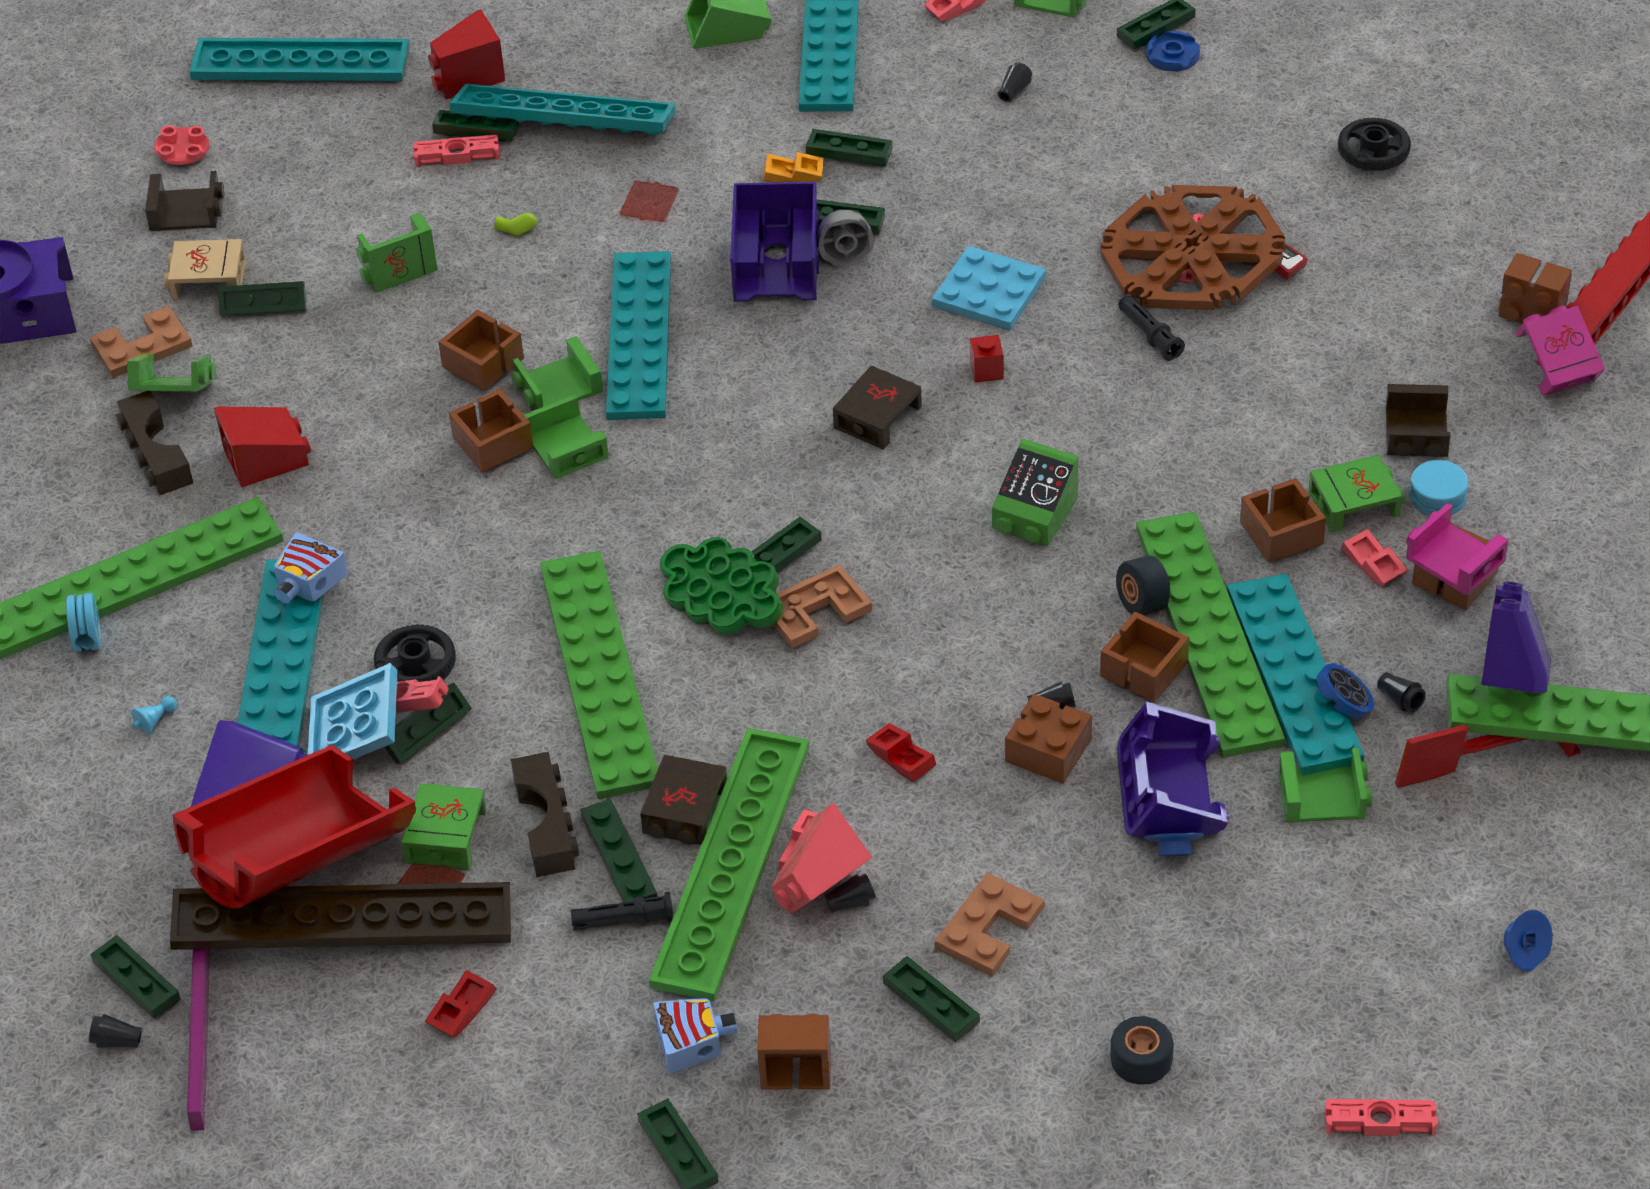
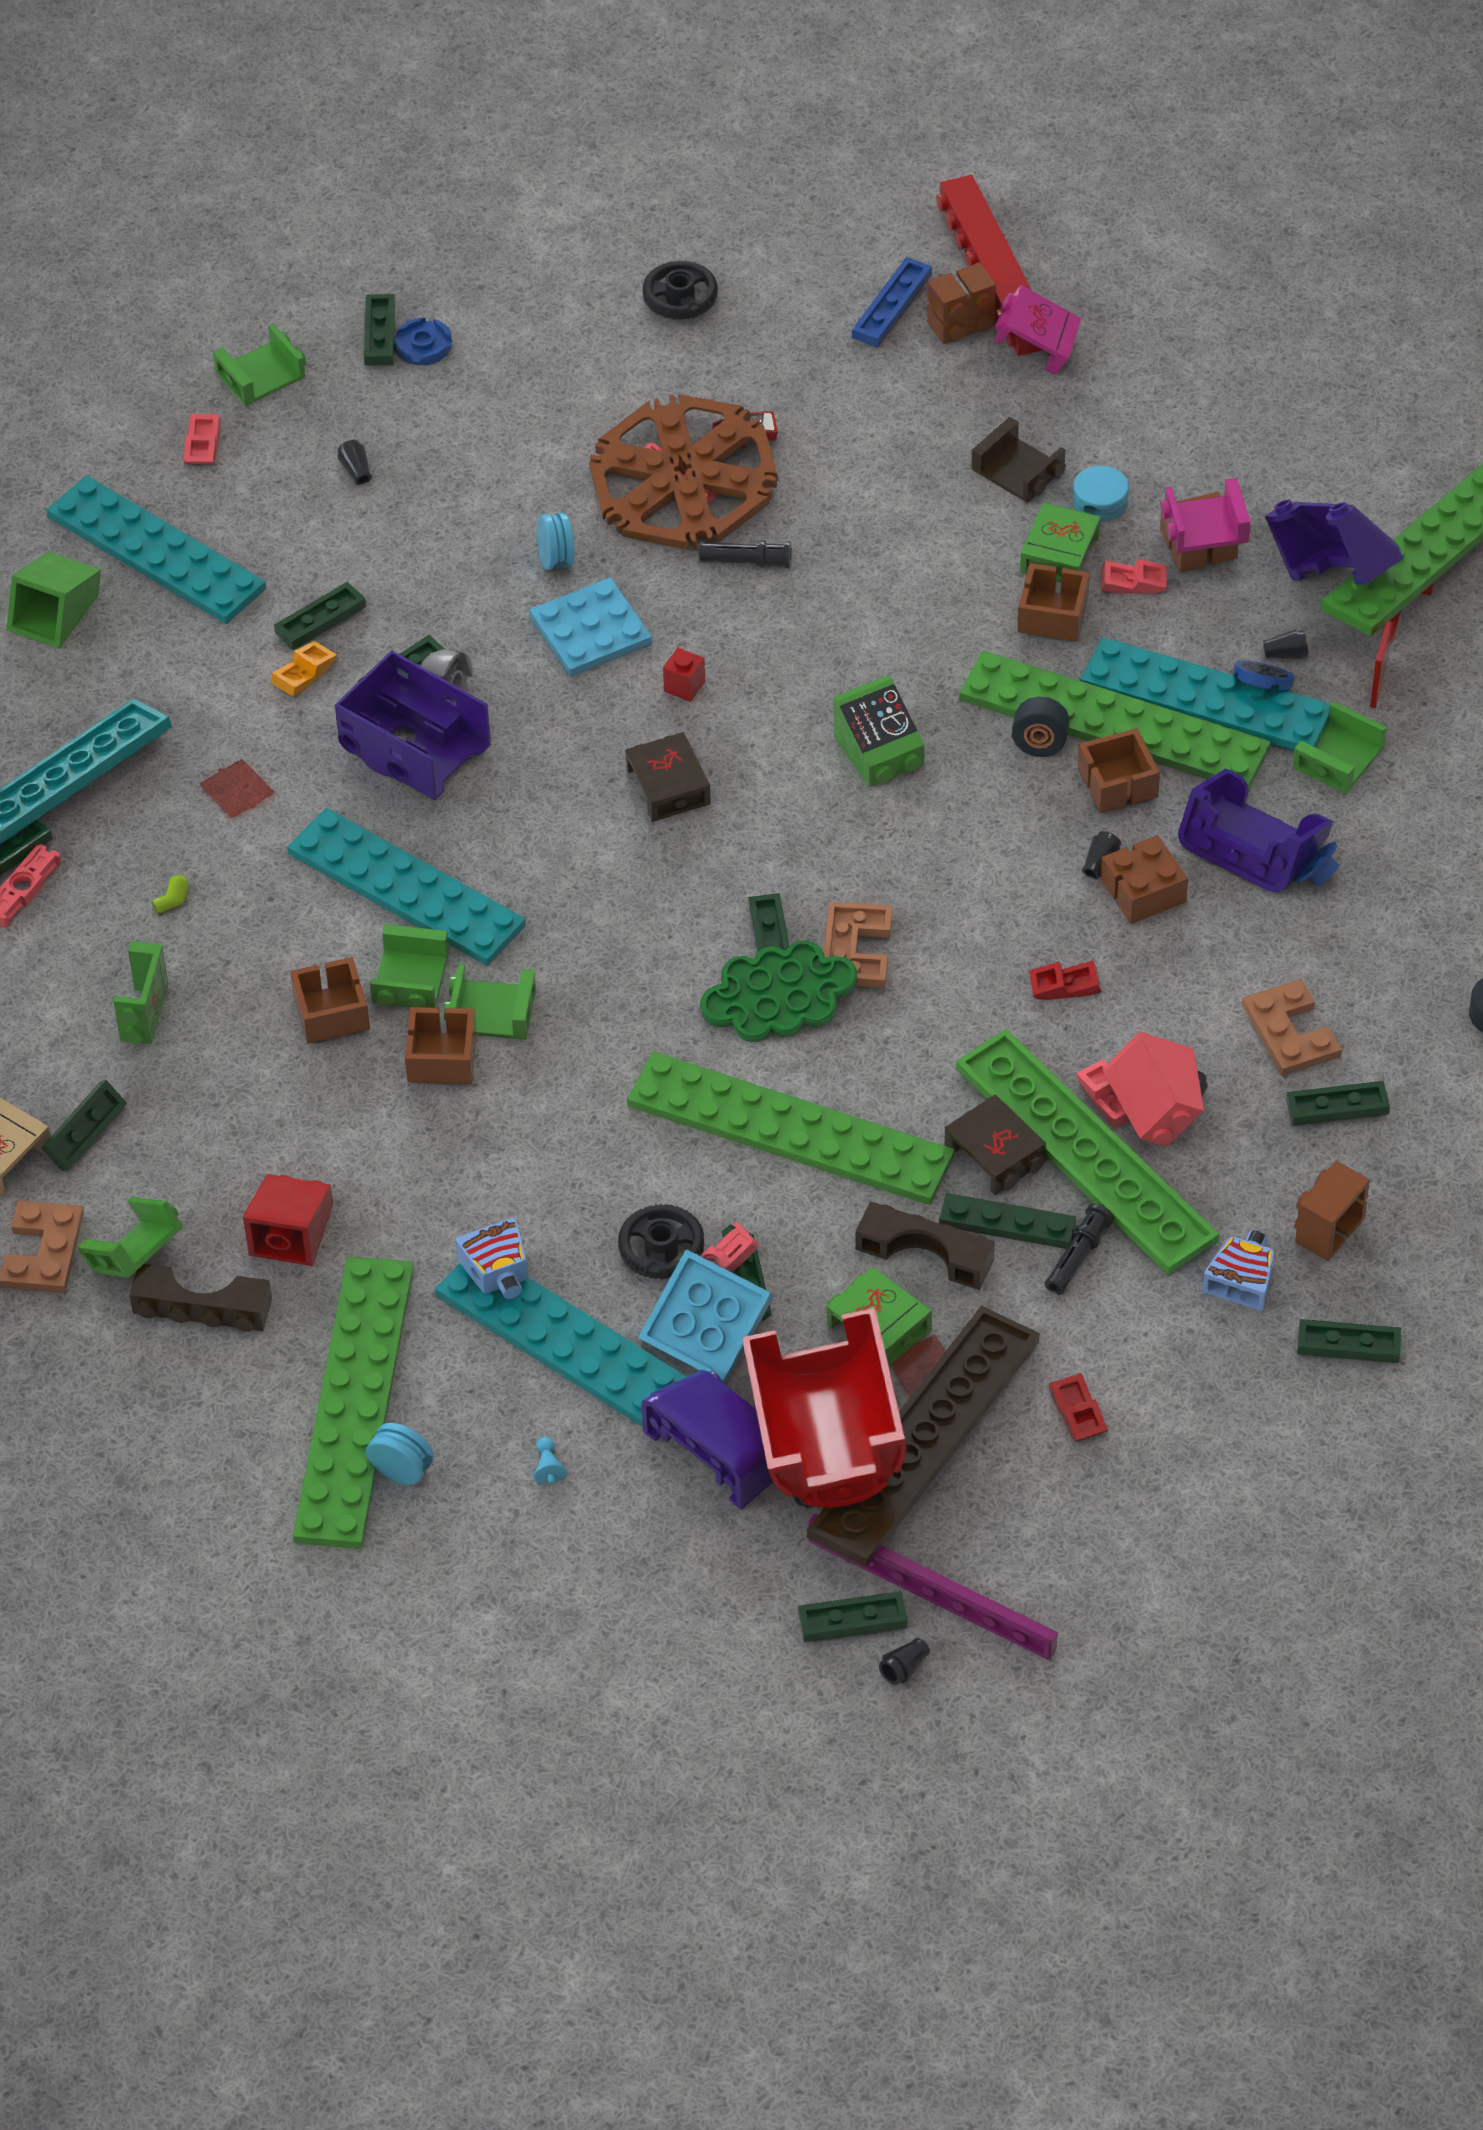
camera: 55 degrees left, 5 degrees up
(1040, 216) = (555, 541): none -> medium azure head
(1496, 260) = (891, 301): none -> blue plate

